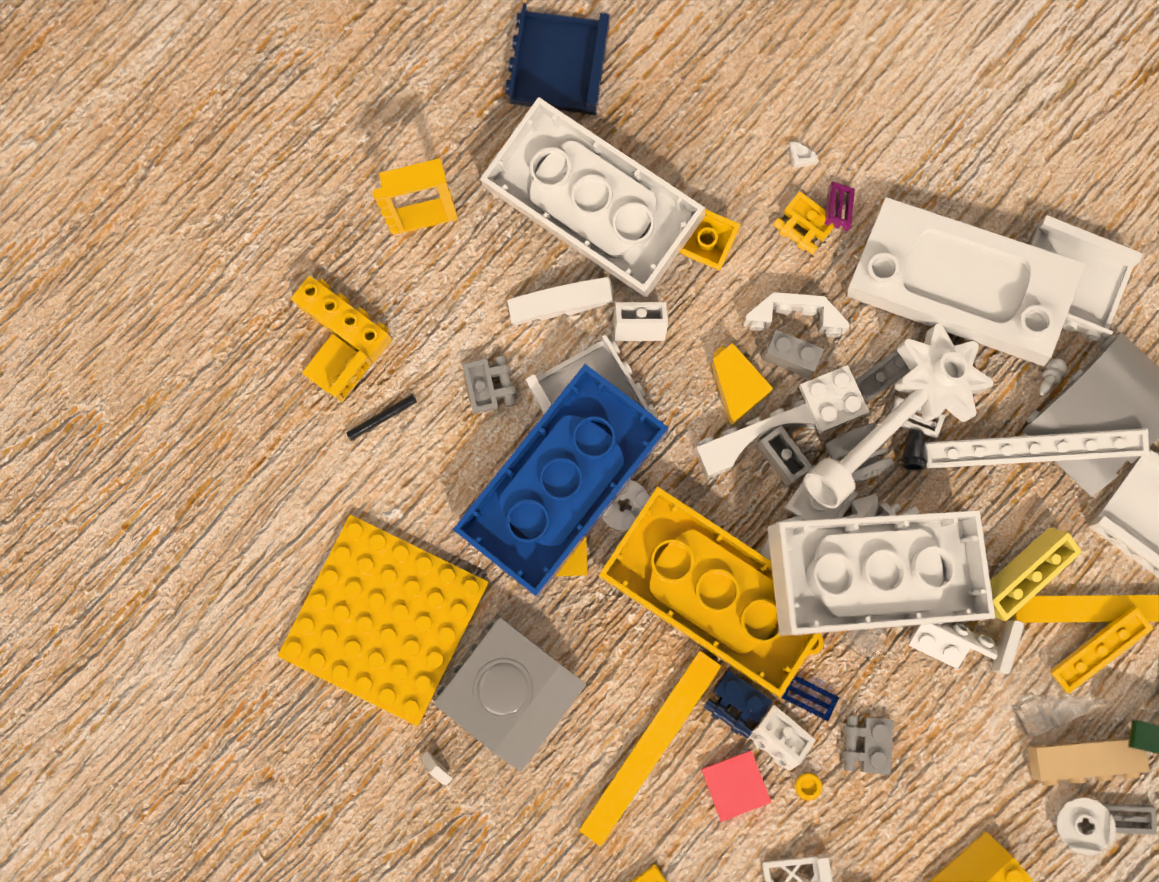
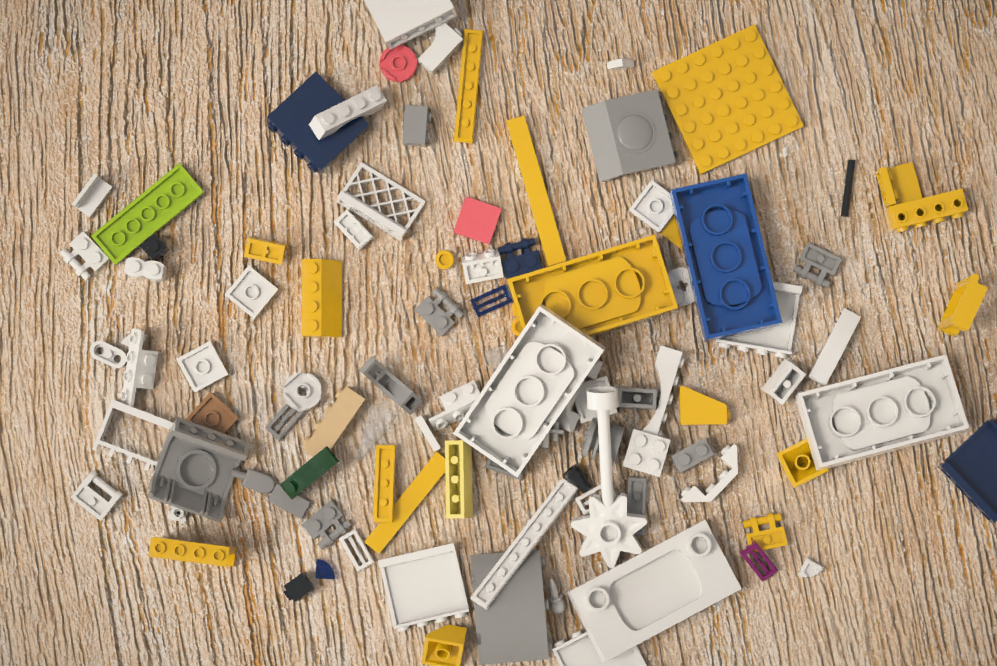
camera: 125 degrees right, 5 degrees up
(565, 604) = (653, 207): none -> white plate
(993, 741) = (390, 385): none -> light grey arch

